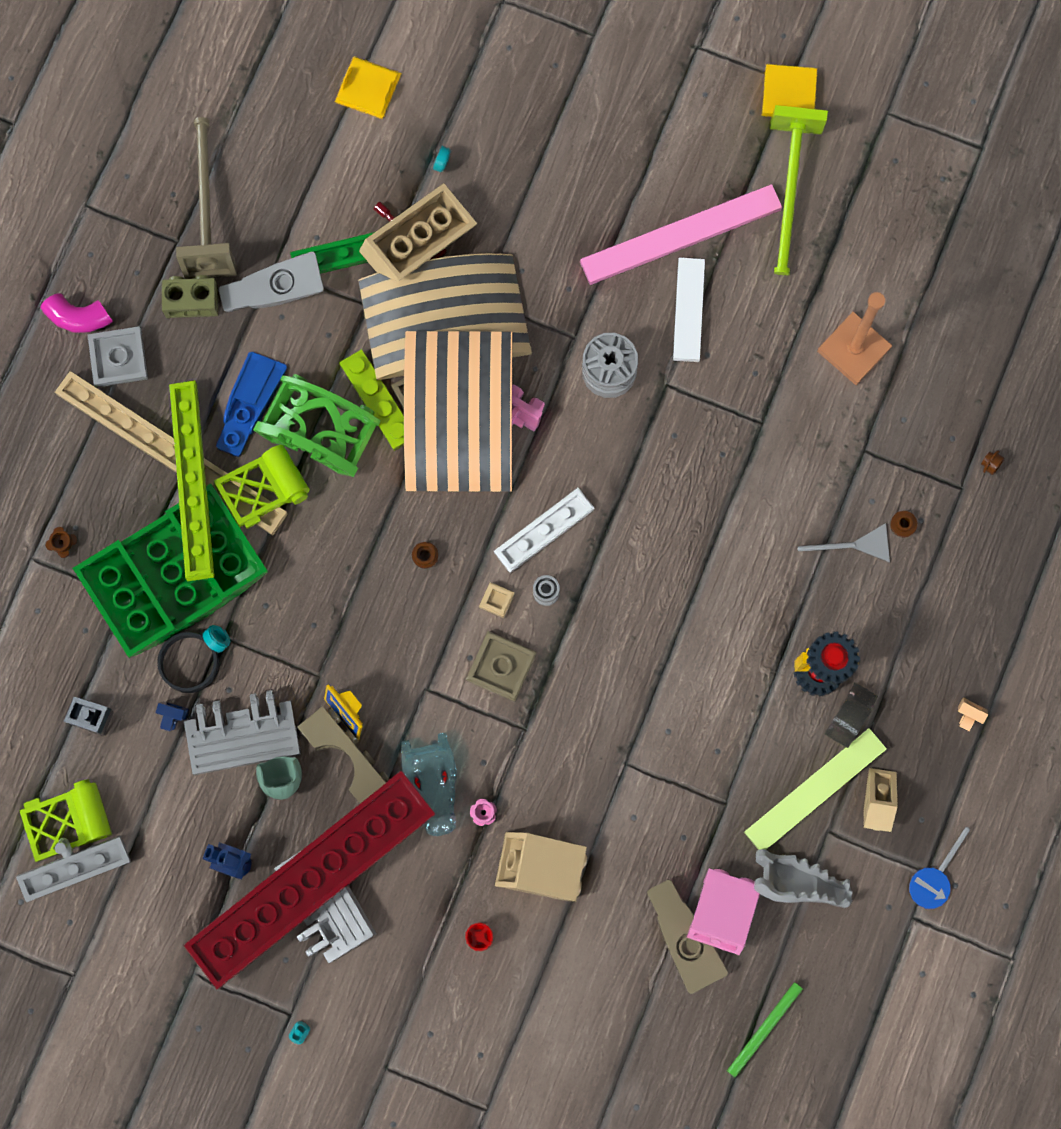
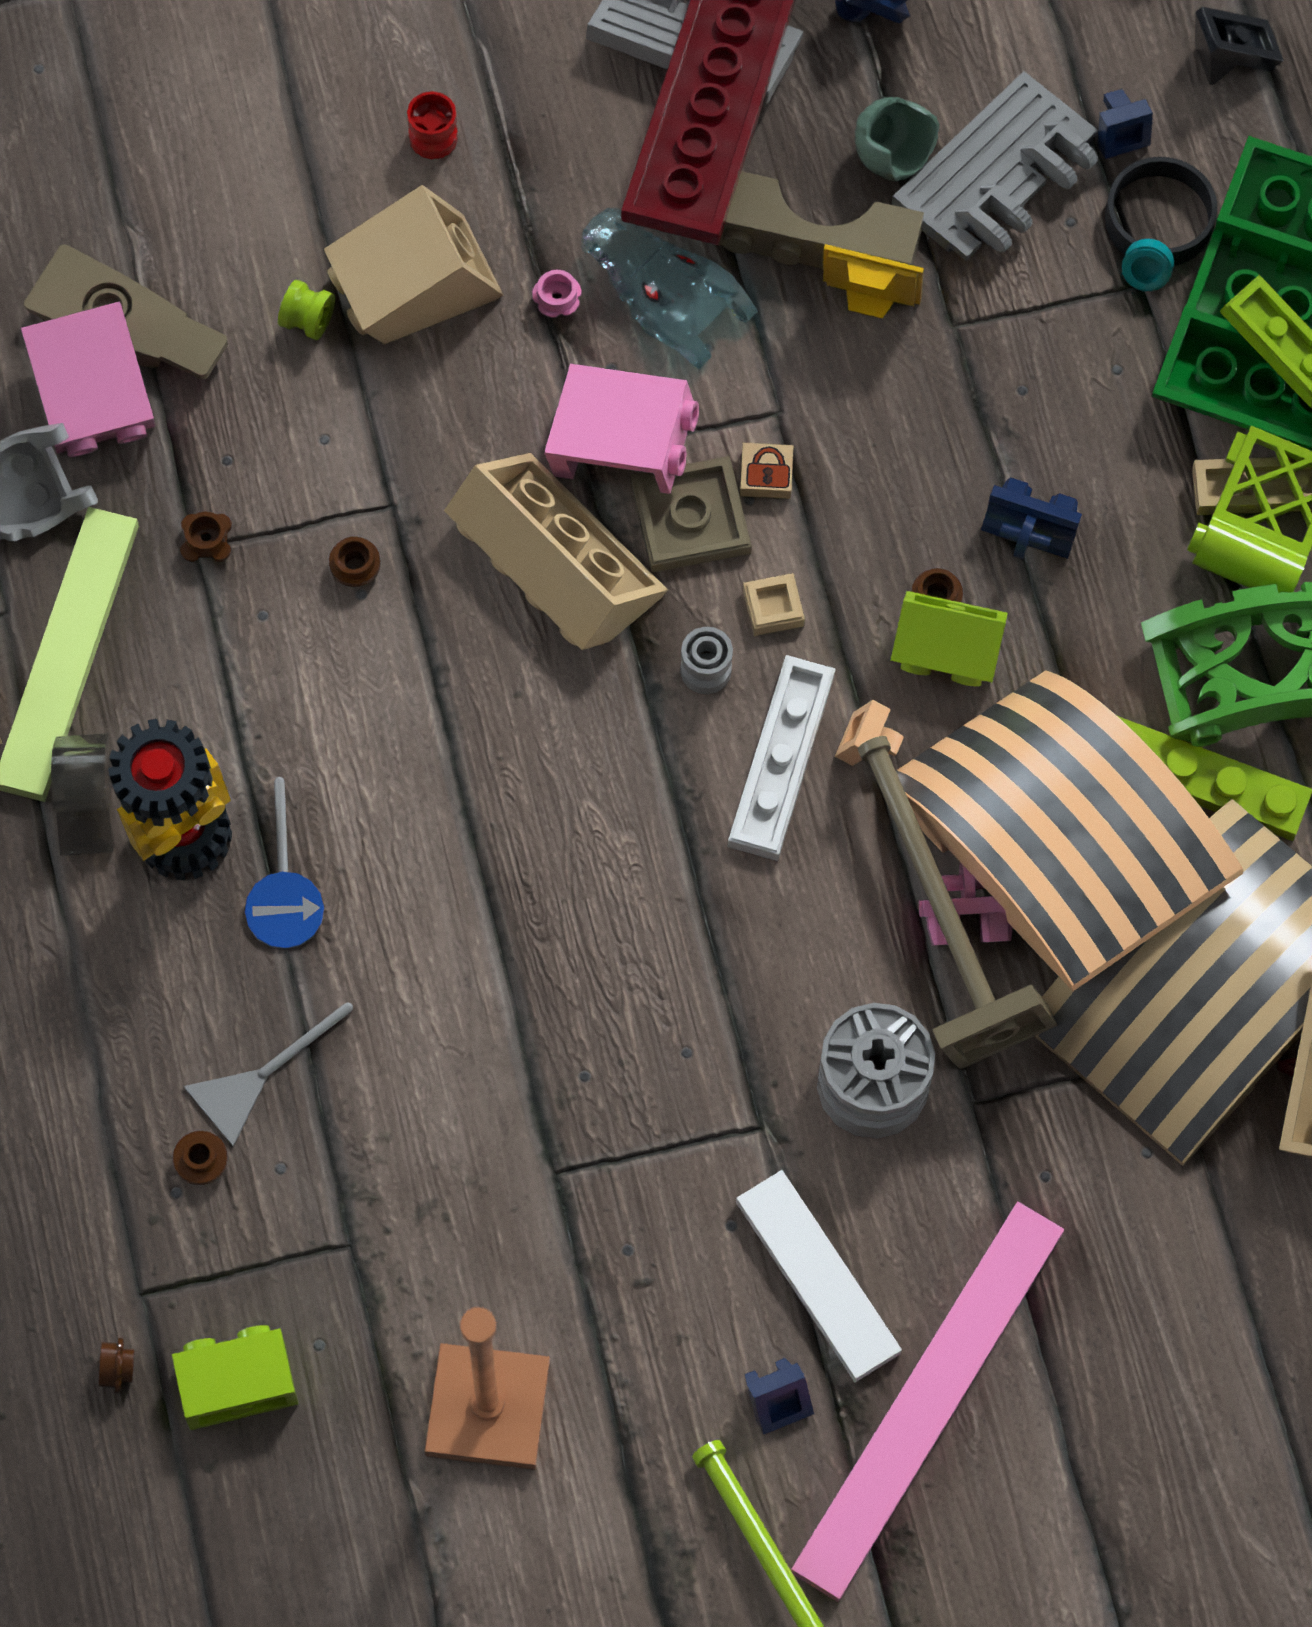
camera: 140 degrees right, 10 degrees down
(364, 553) = (1032, 521): none -> dark blue hips
(438, 526) = (948, 638): none -> lime brick
(454, 663) = (766, 470): none -> tile
(504, 511) = (864, 725): none -> light nougat tile
(505, 719) = (622, 423): none -> bright pink panel
(552, 347) = (994, 1023): none -> dark tan tile
(573, 686) = (553, 549): none -> tan slope
(601, 881) = (306, 309): none -> lime wheel
(662, 736) = (354, 548): none -> reddish brown plate
(711, 803) = (206, 523): none -> reddish brown plate
(739, 270) = (779, 1396): none -> dark blue tile
(797, 610) = (283, 906): none -> blue piece
(949, 423) = (234, 1377): none -> lime brick

